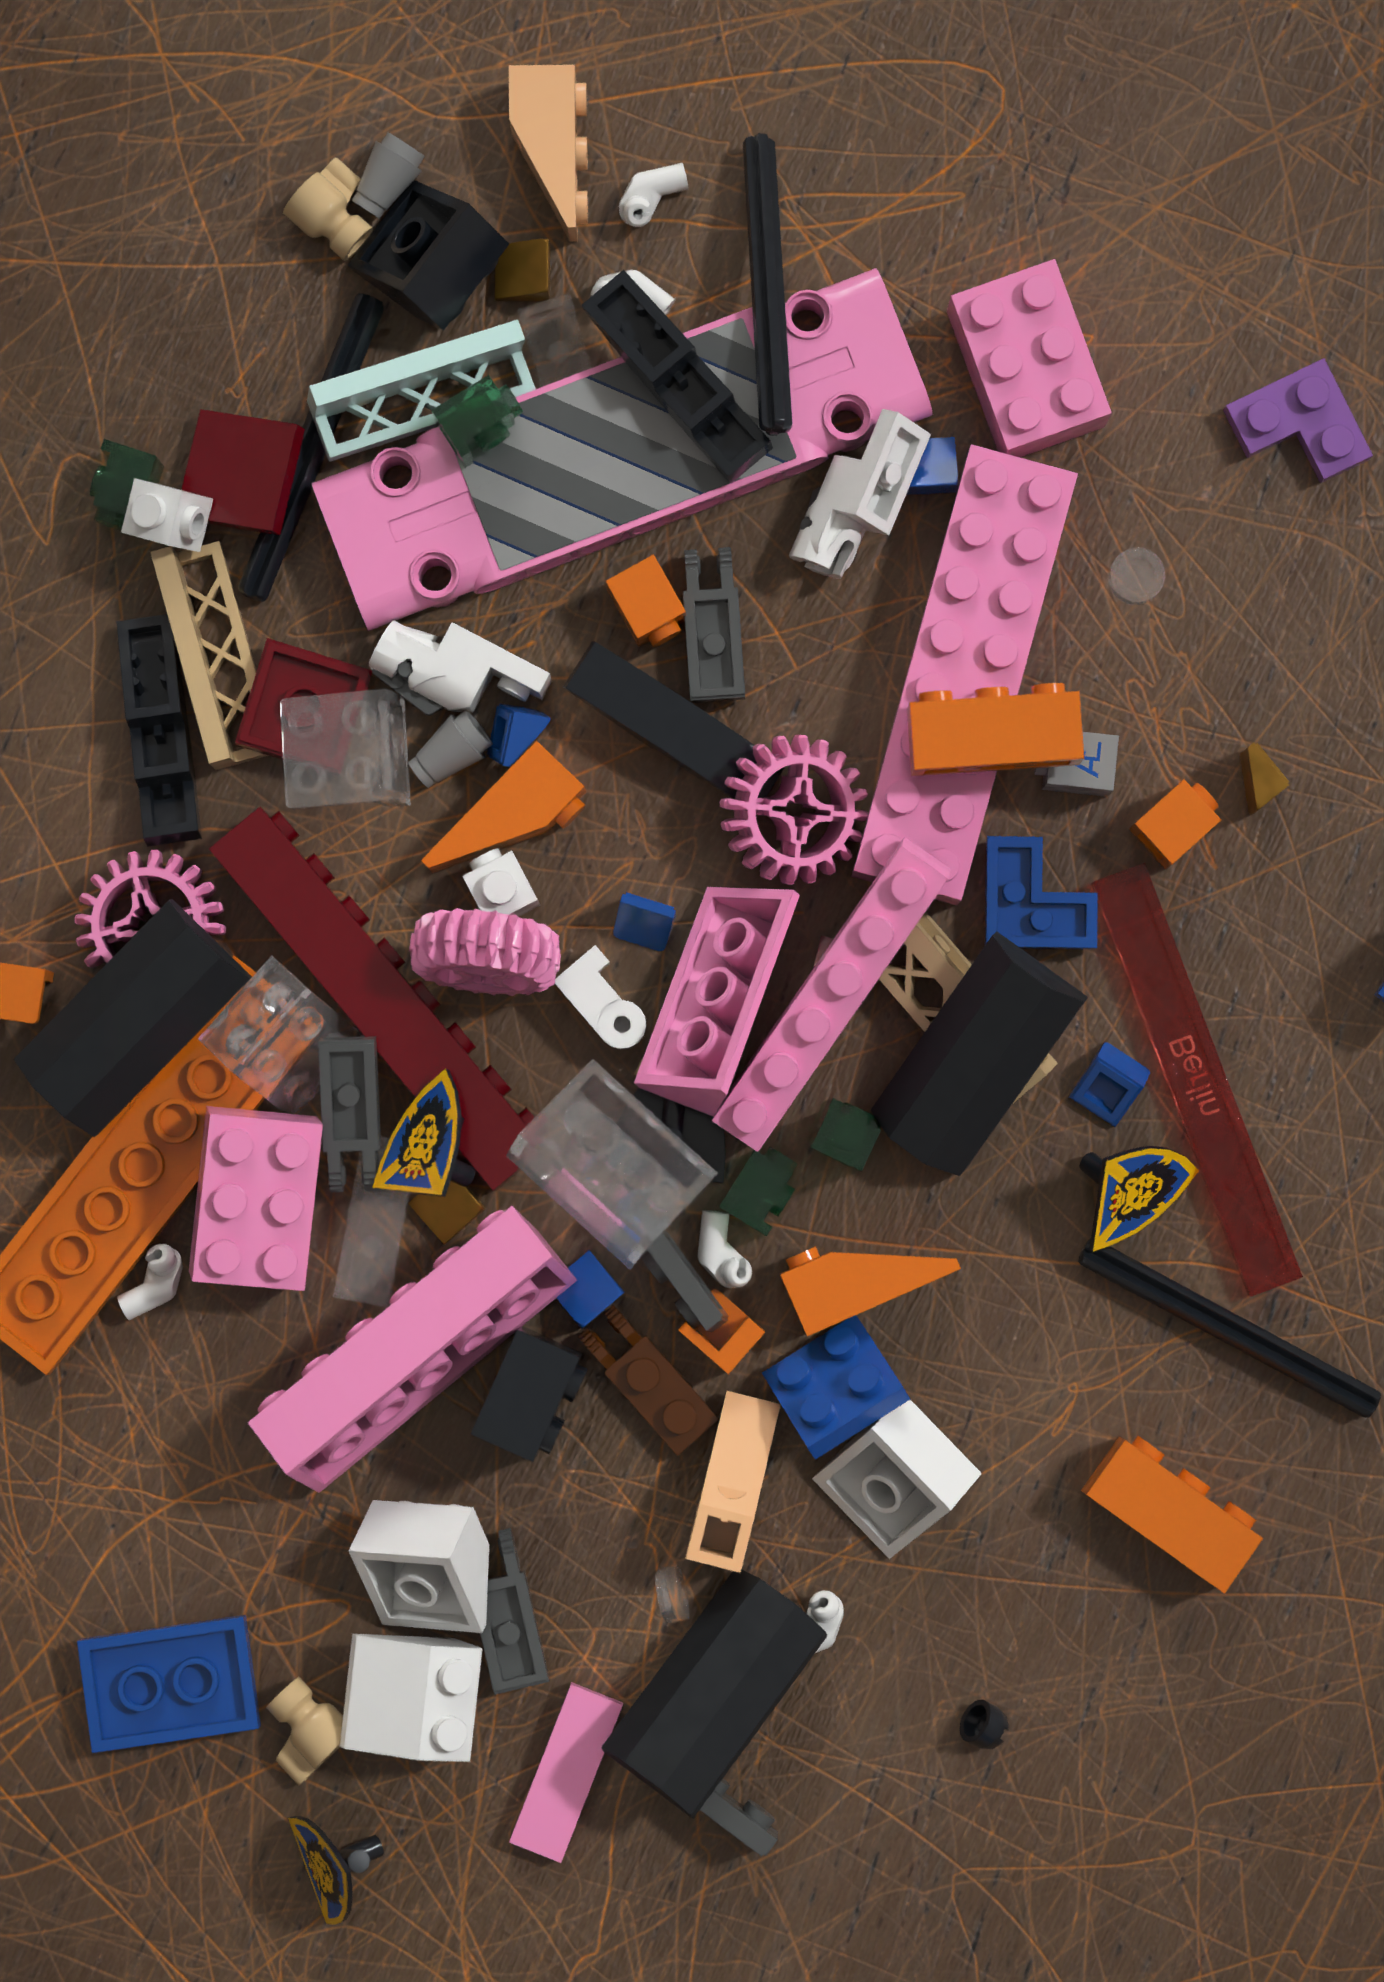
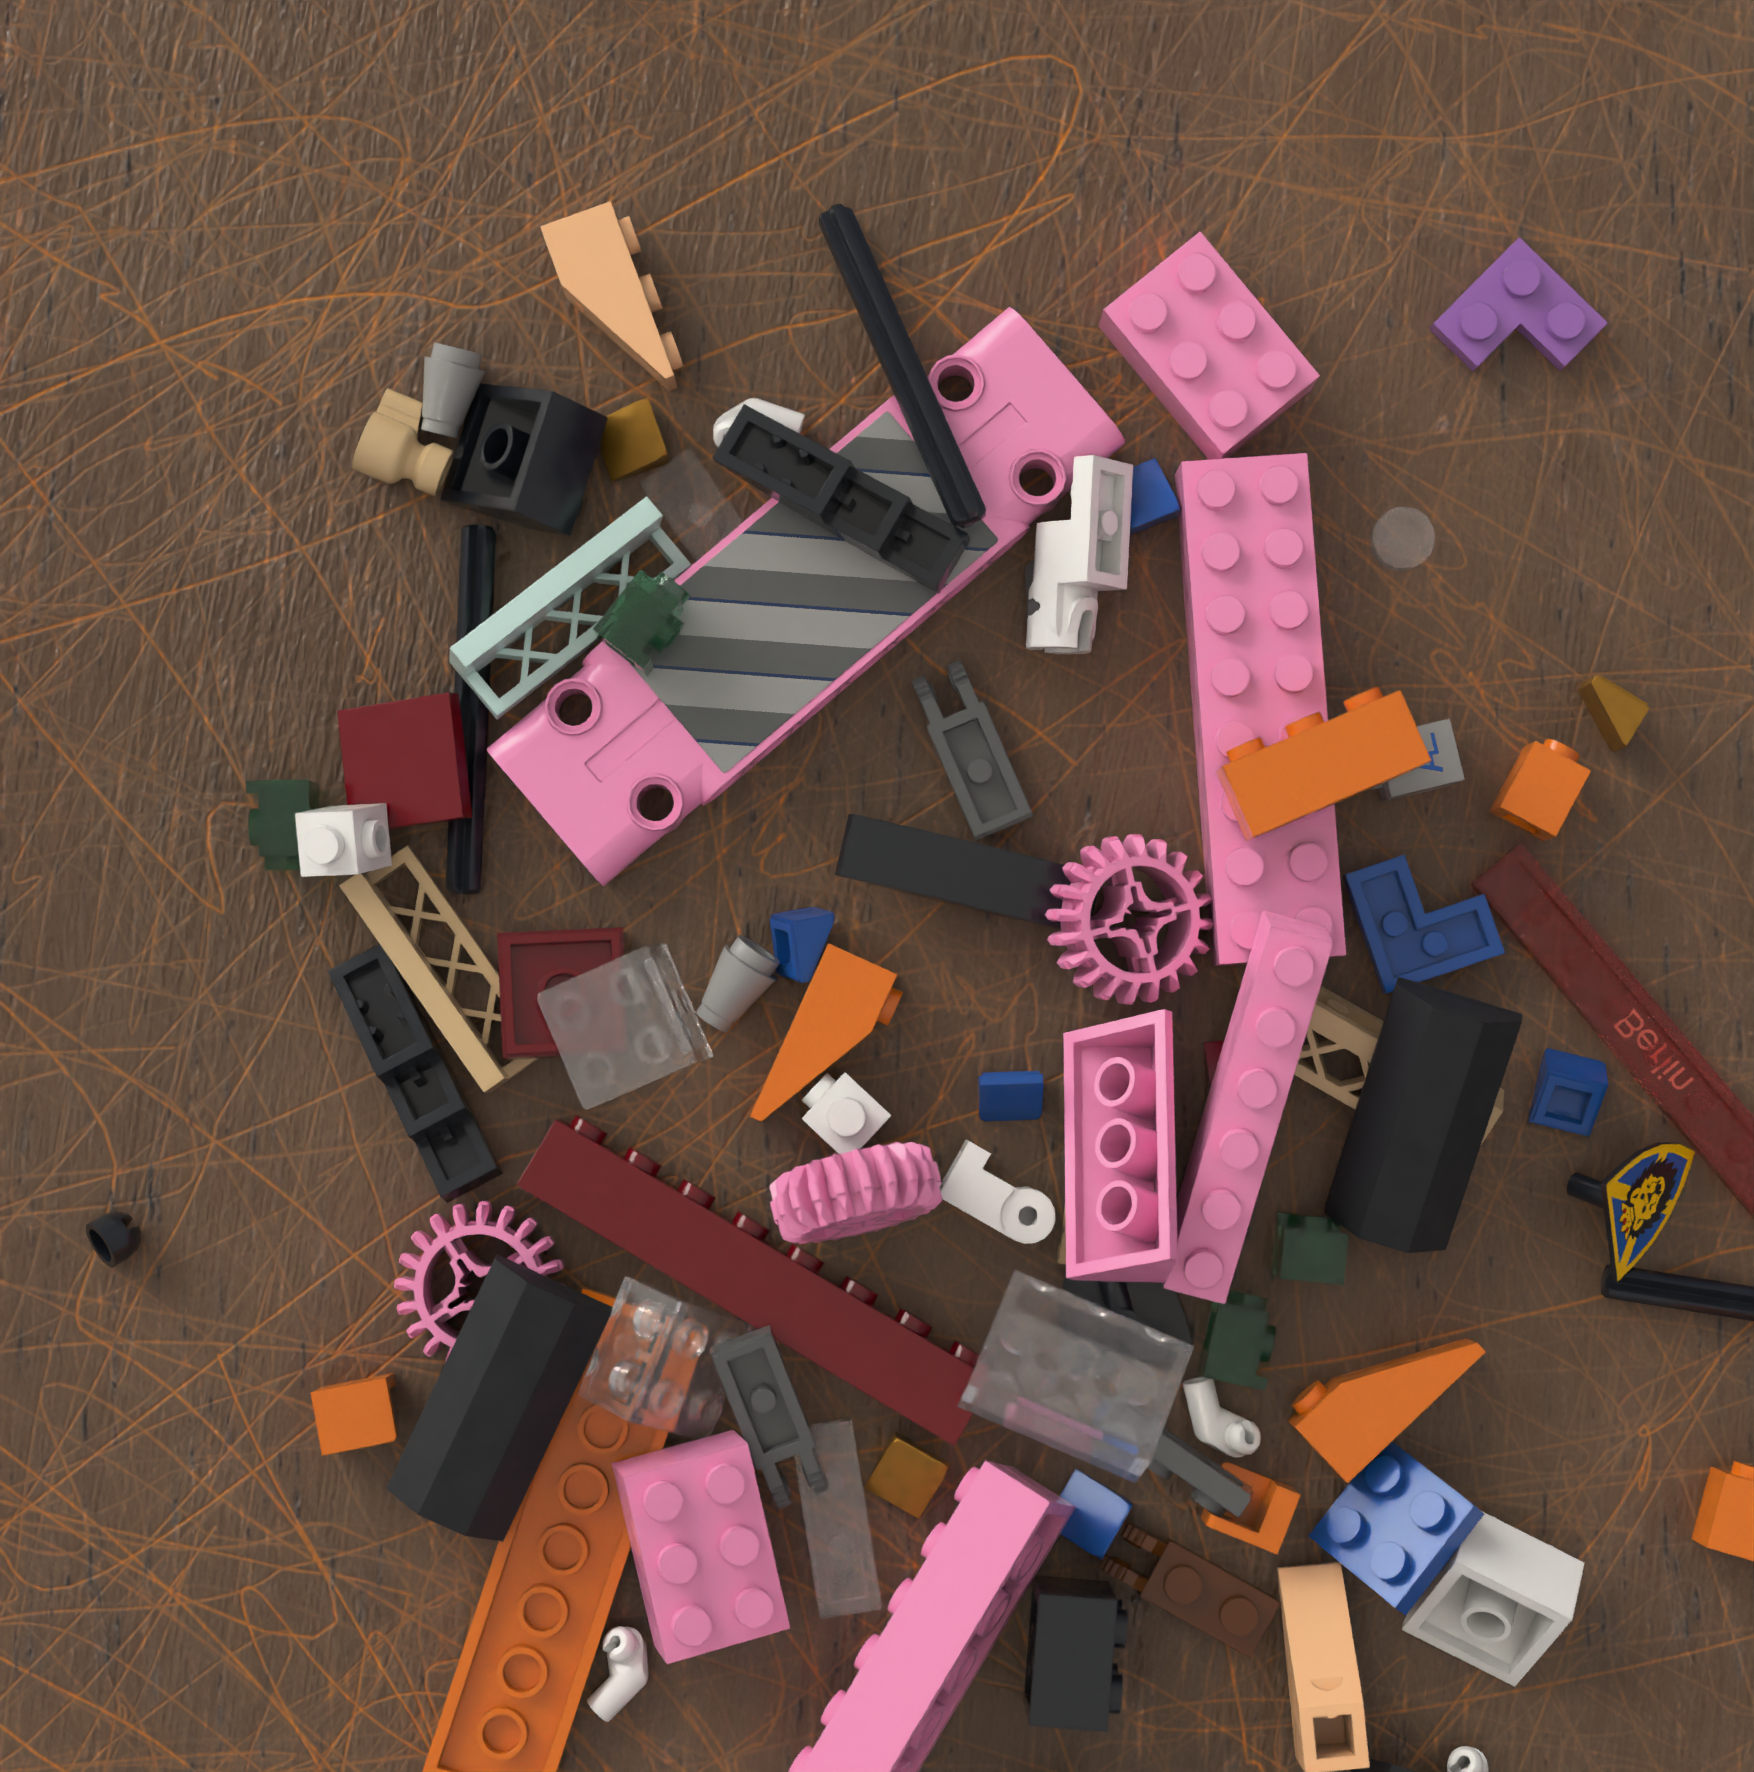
camera: 25 degrees left, 0 degrees up
(426, 1144) = (867, 1424): shield -> none
(451, 672) = (709, 900): white plate -> none
(646, 191) = (733, 306): white arm -> none
(647, 602) = (892, 751): orange brick -> none

